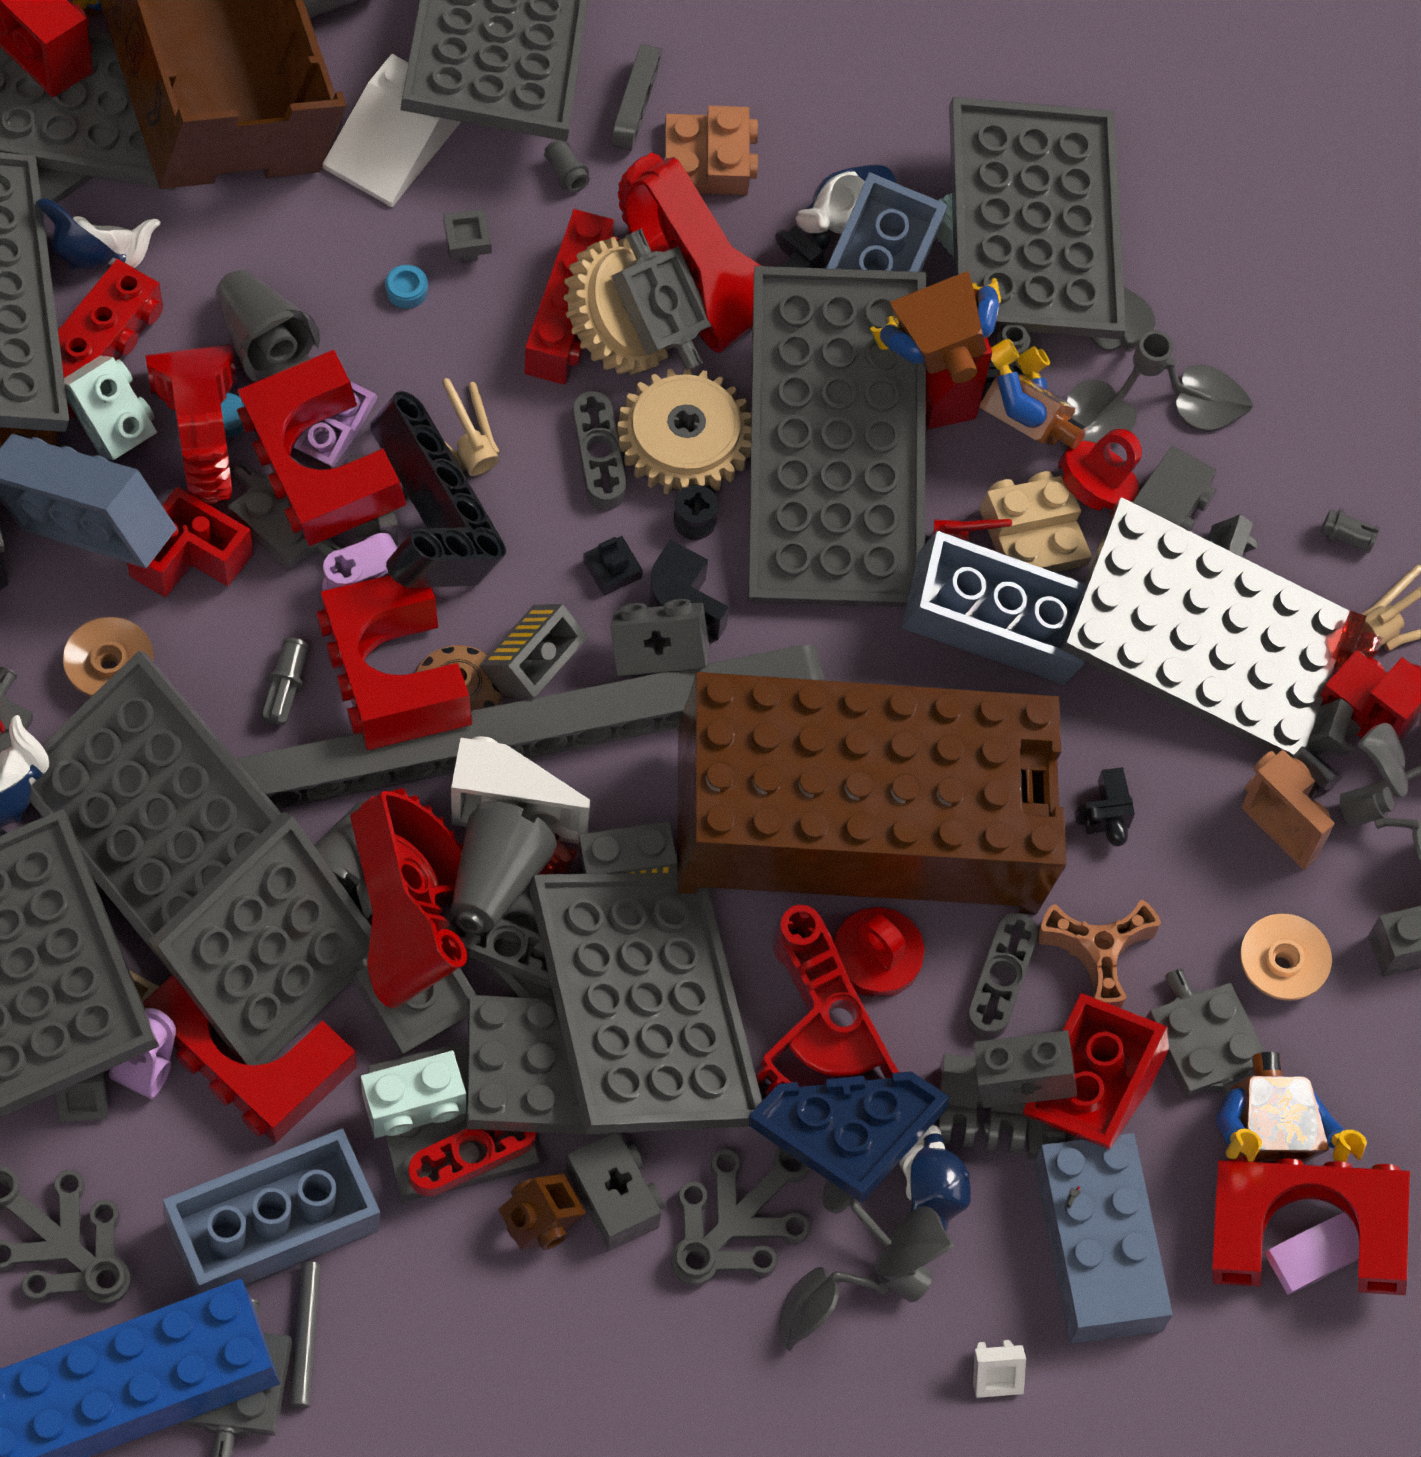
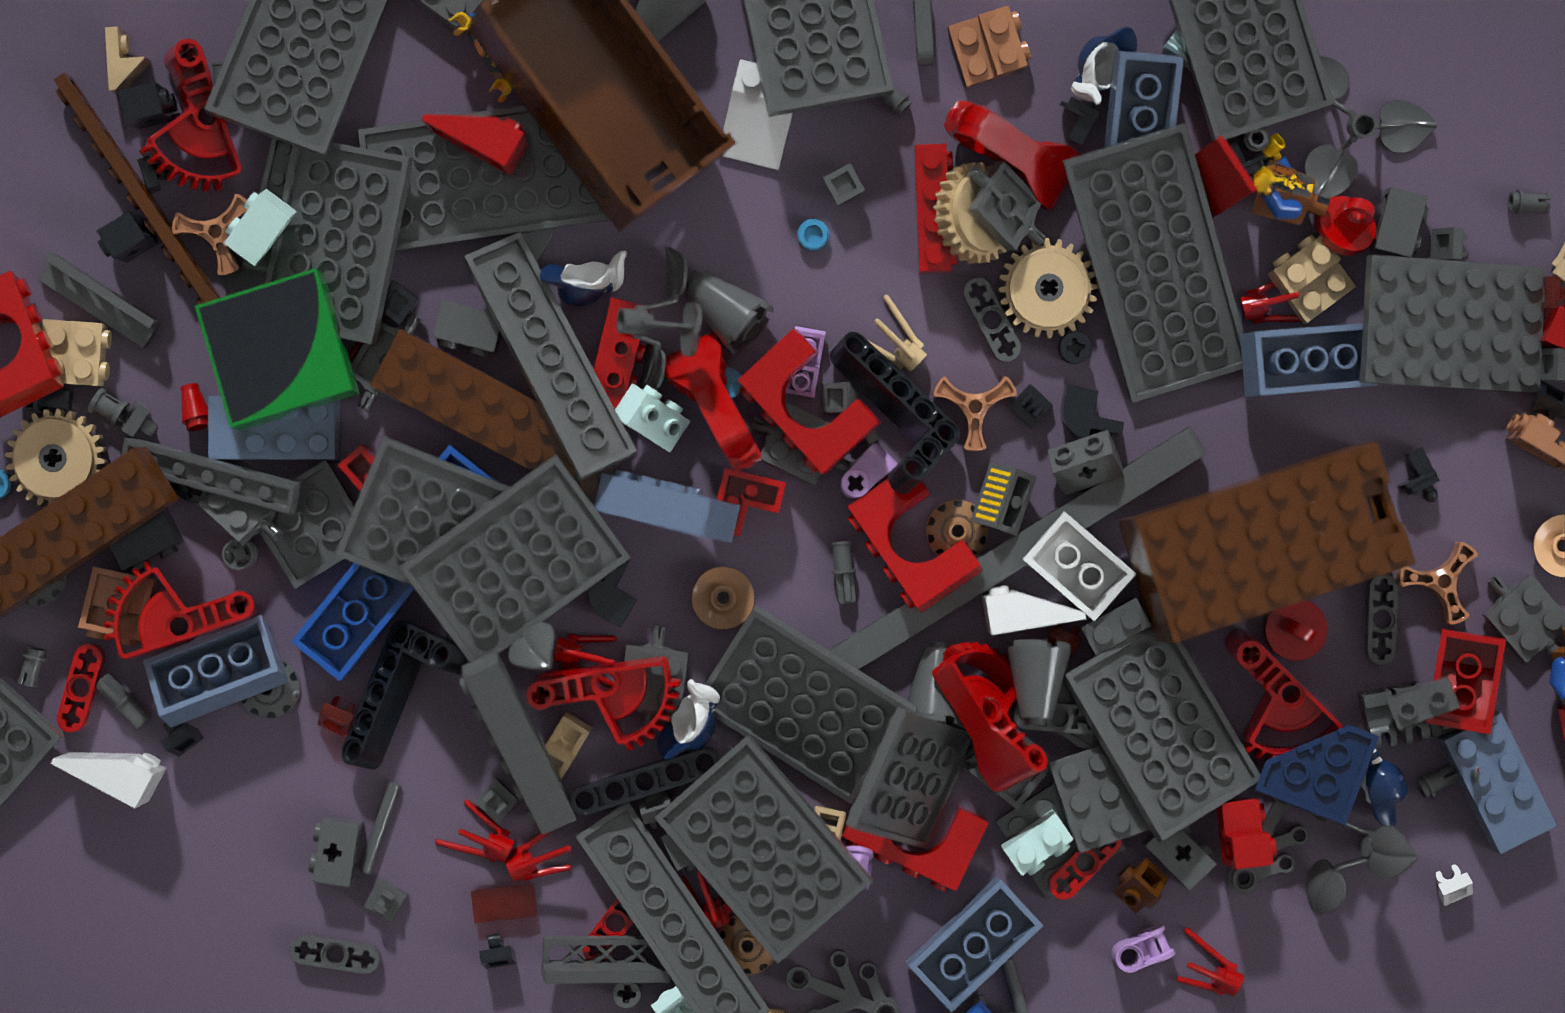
camera: 10 degrees left, 25 degrees up
(139, 277) = (639, 322): none -> dark grey plant
(517, 1309) = (1145, 949): none -> lavender piece
(538, 536) = (974, 407): none -> nougat piece
(606, 757) = (1079, 566): none -> white slope
(621, 1391) = (1223, 979): none -> red plant
(714, 1181) = (1241, 834): none -> red brick
(943, 325) = (1219, 183): dark orange torso -> none
(1016, 1215) = (1435, 781): none -> dark grey pin

